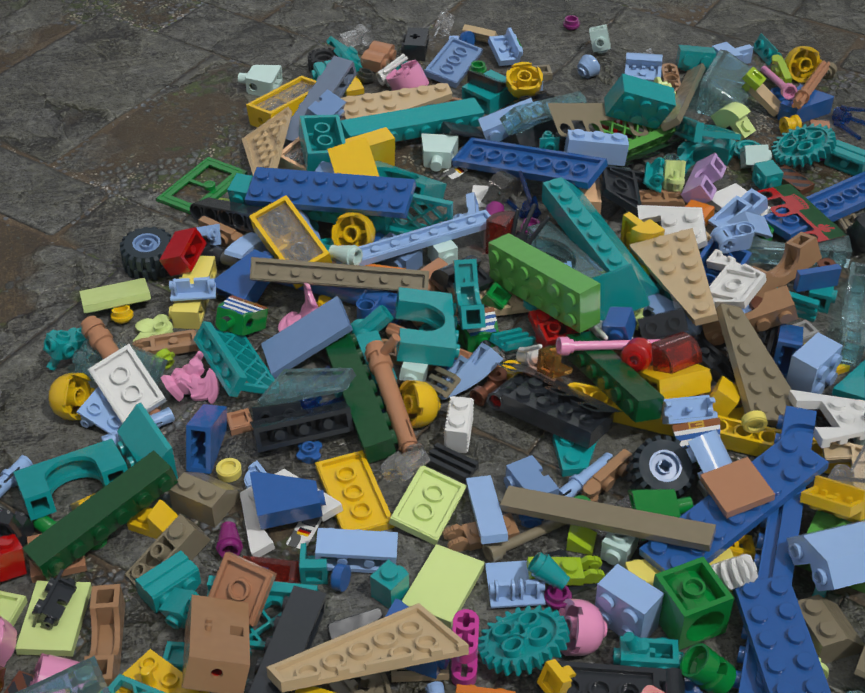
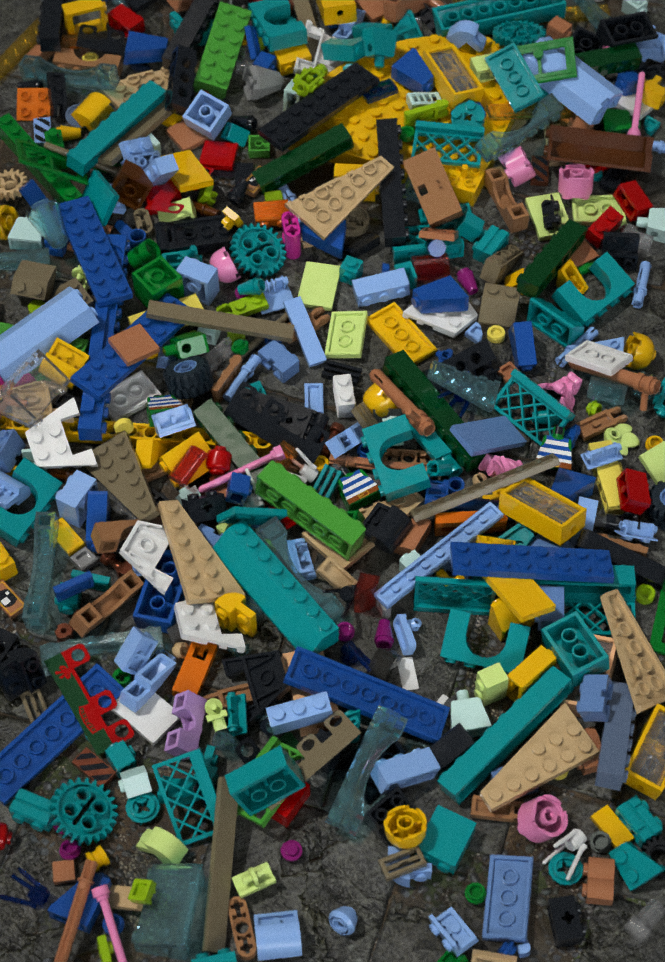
camera: 165 degrees right, 15 degrees up
(346, 254) = (487, 502): light aqua cone -> none
(404, 464) = (364, 348): clear plate -> none
(409, 153) = (491, 684): none -> yellowish green brick
(467, 297) = (366, 483): teal arch -> none
(485, 81) = (449, 830): black slope -> none
(497, 440) = (314, 396): none -> light blue tile
(708, 452) = (151, 375): light blue brick -> none
(735, 236) = (152, 613): light blue piece -> none
(736, 571) = (126, 300): white gear -> none

